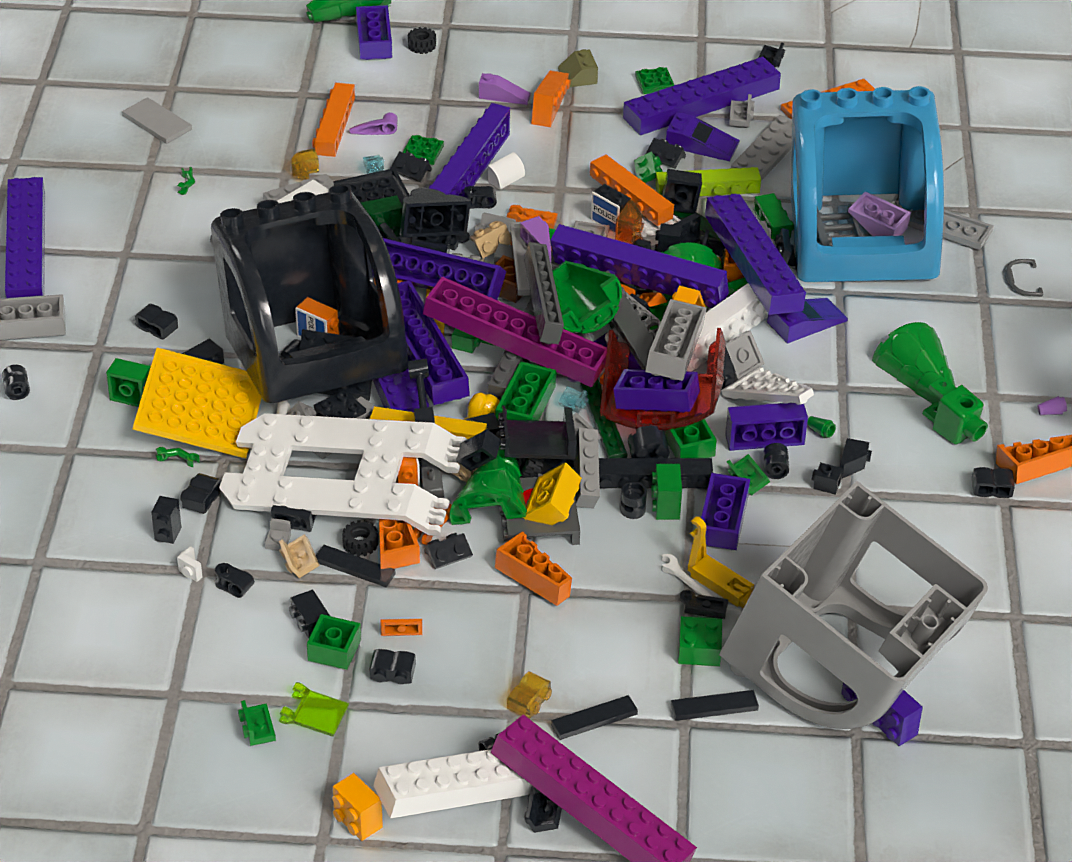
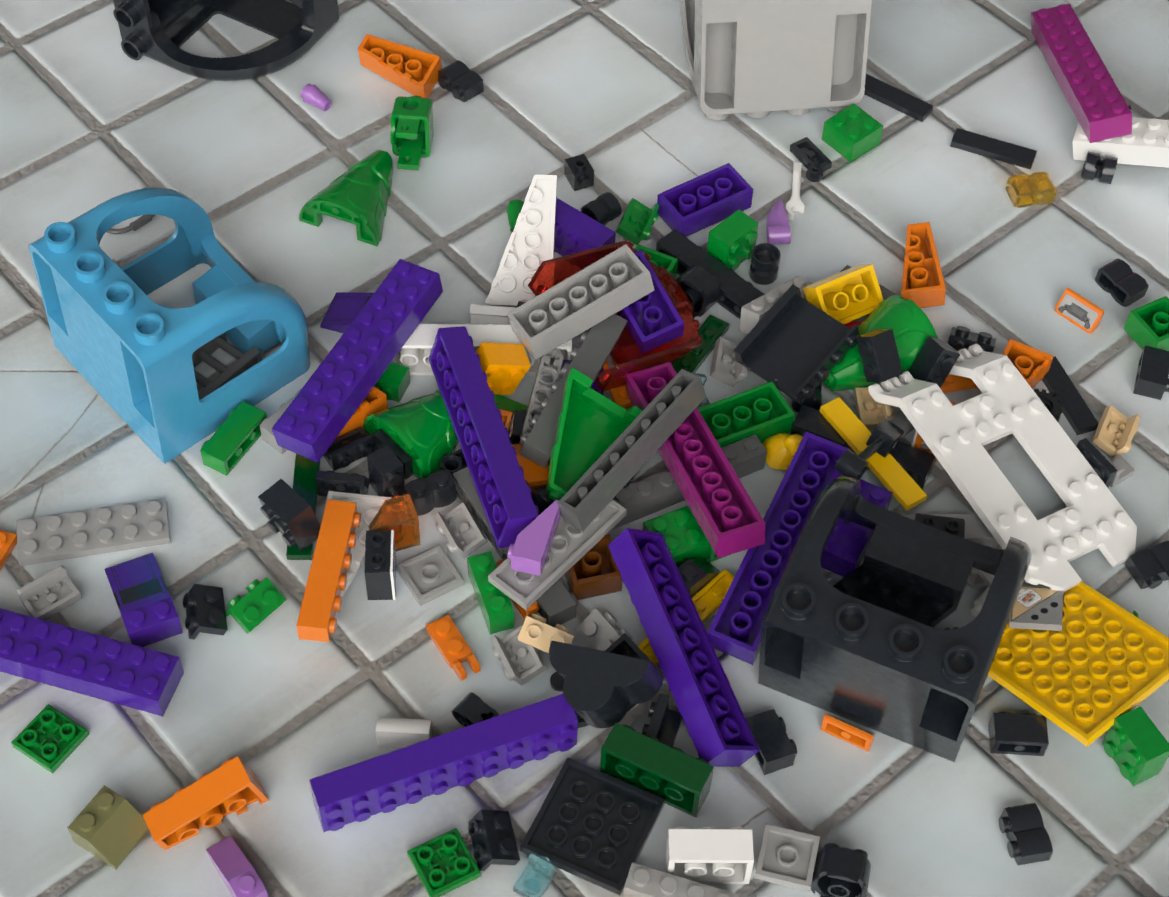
camera: 135 degrees left, 10 degrees up
(244, 411) = (1037, 609): none -> tile
(446, 487) = (934, 361): none -> black brick
(656, 536) = (777, 225): none -> medium lavender piece
(715, 574) = (771, 165): yellow hinge -> none
(722, 181) = (228, 531): lime brick -> none
(785, 248) = (287, 385): black bracket -> none
(855, 456) = (525, 168): black slope -> none

